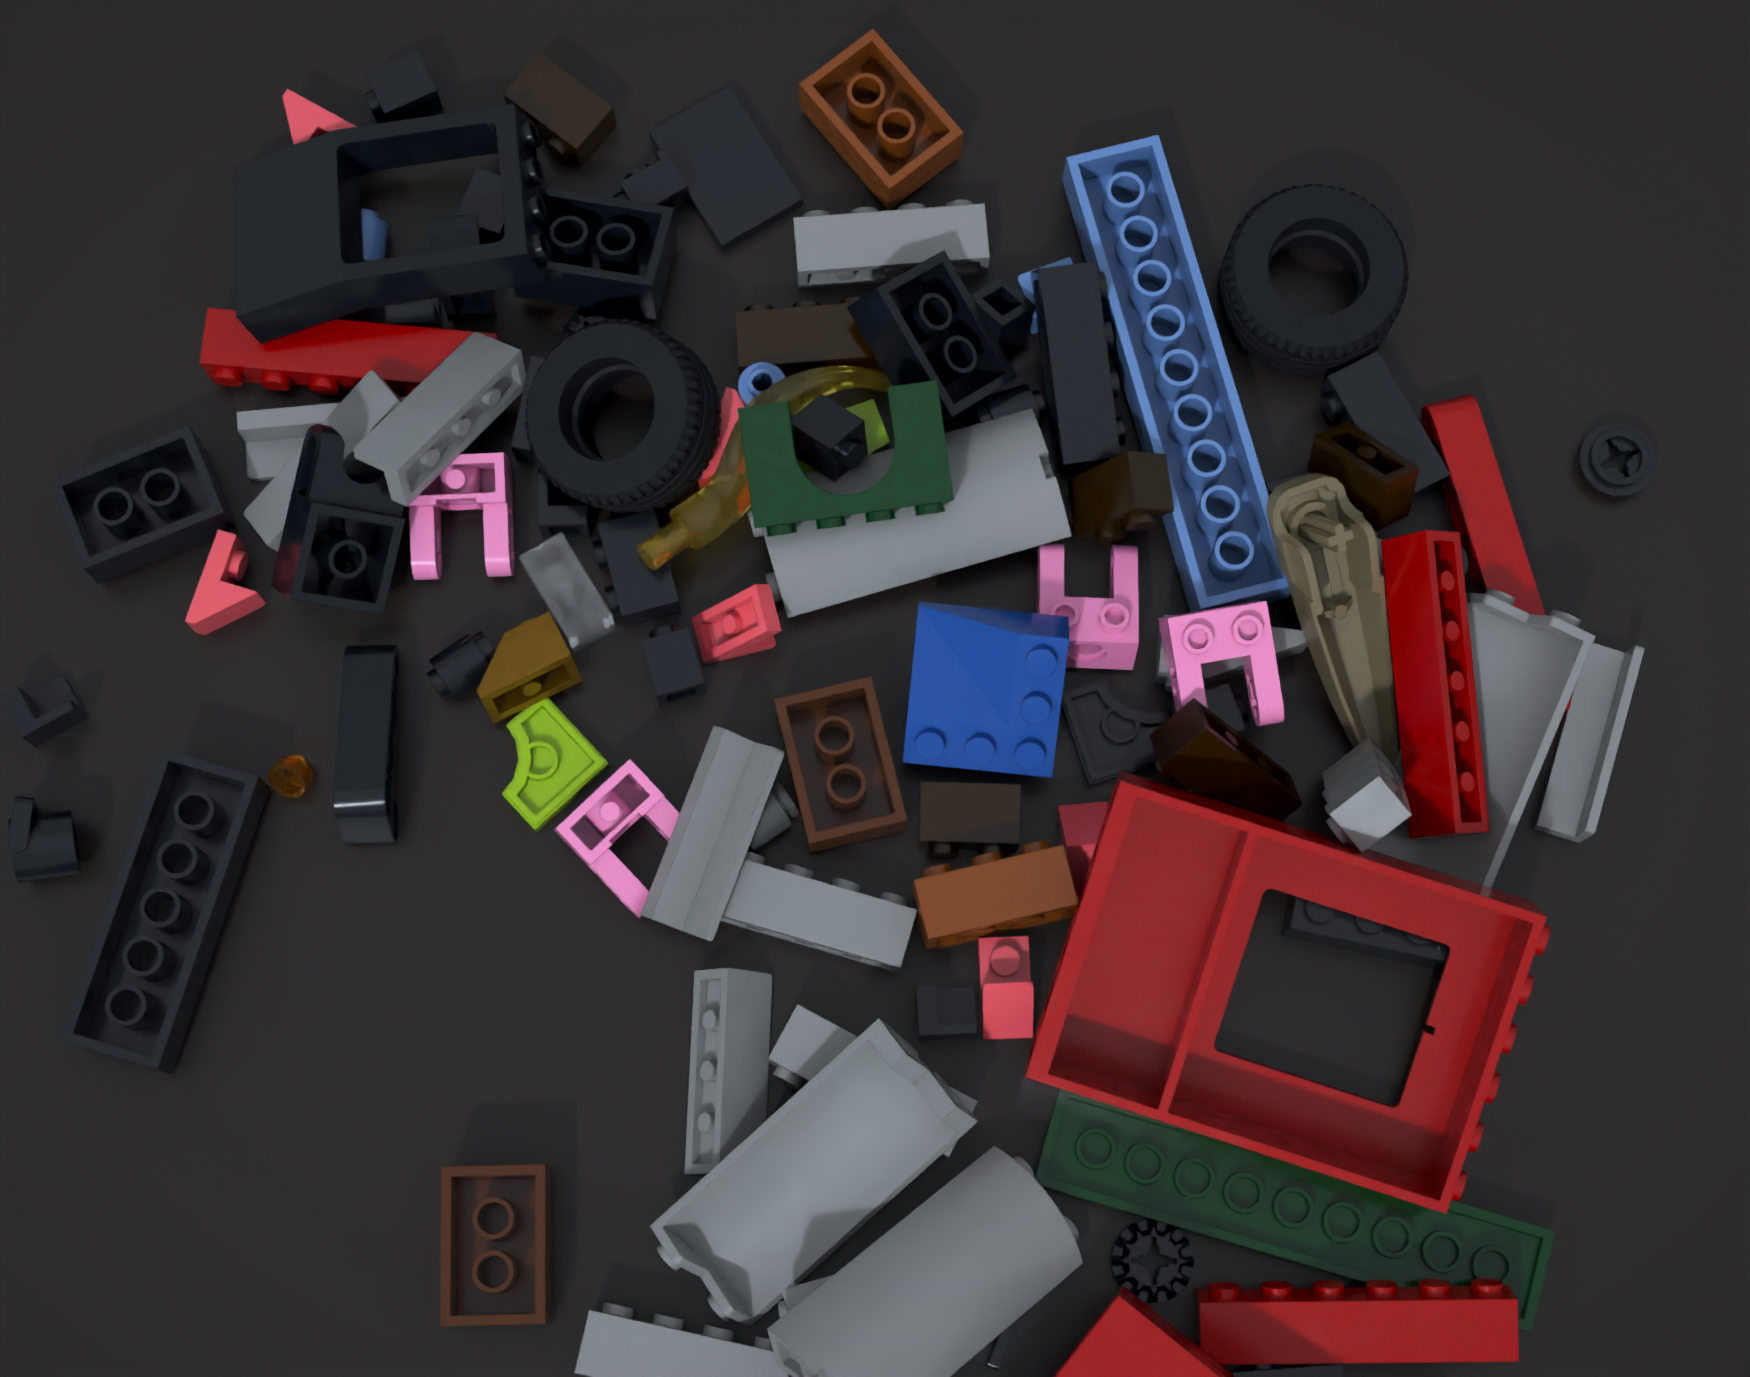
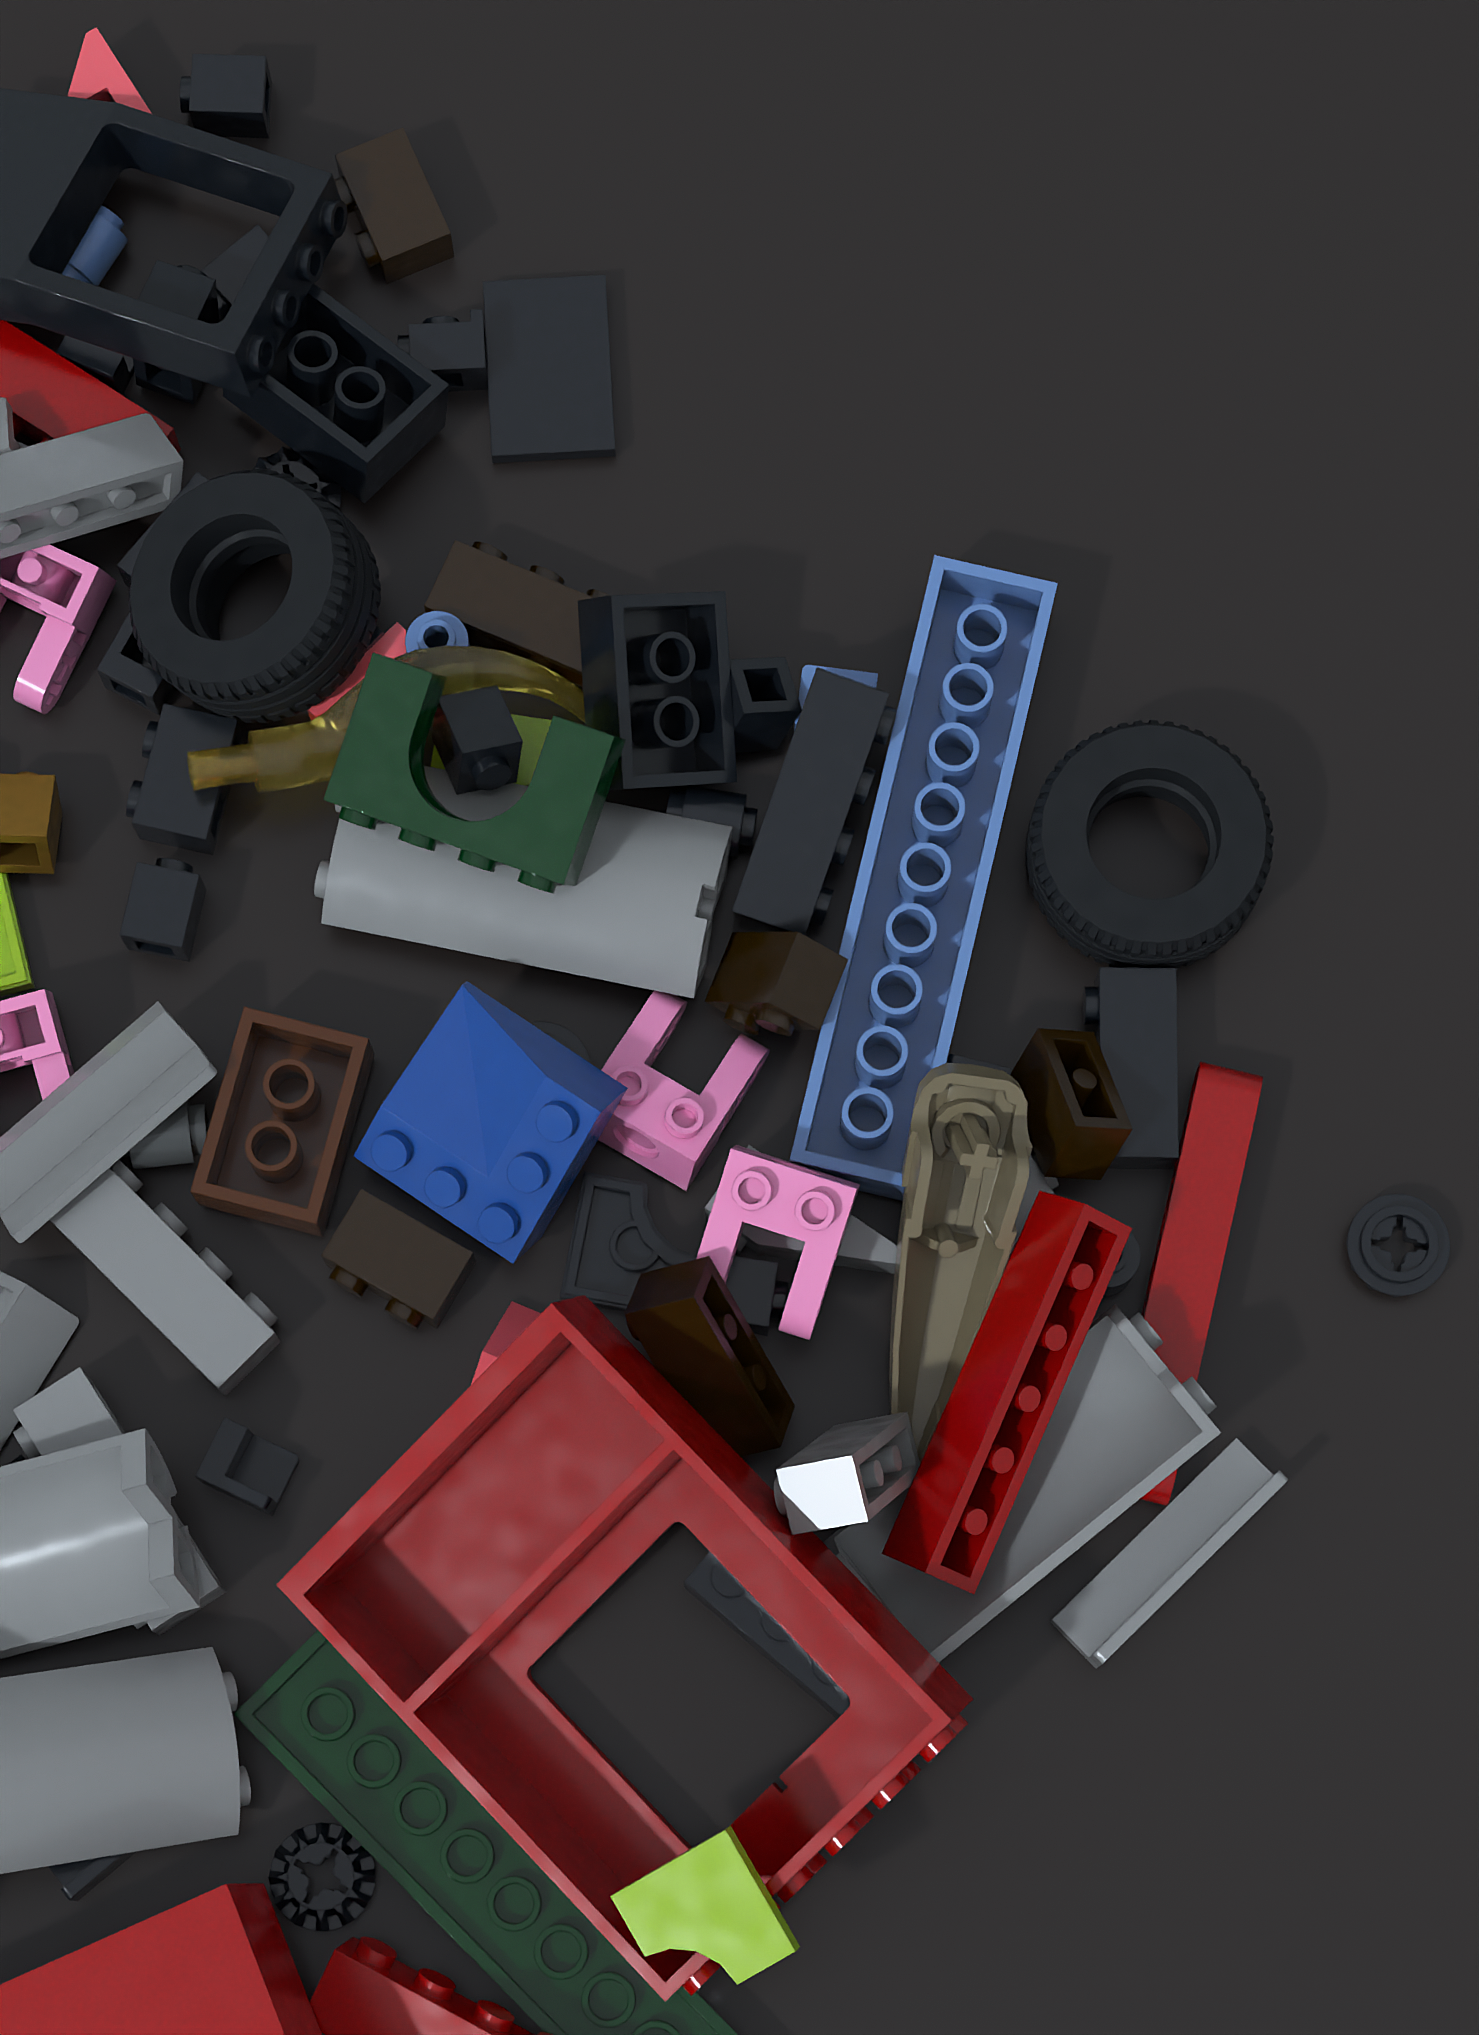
camera: 30 degrees right, 0 degrees up
(567, 592) = (88, 764): clear brick -> none
(738, 625) = (261, 903): coral slope -> none
(880, 119) = (752, 402): dark orange brick -> none
(883, 244) = (679, 550): light grey brick -> none
(993, 895) = (363, 1360): dark orange brick -> none
(1005, 988) = (332, 1473): coral slope -> none
(1447, 1131) = (708, 1905): none -> lime tile

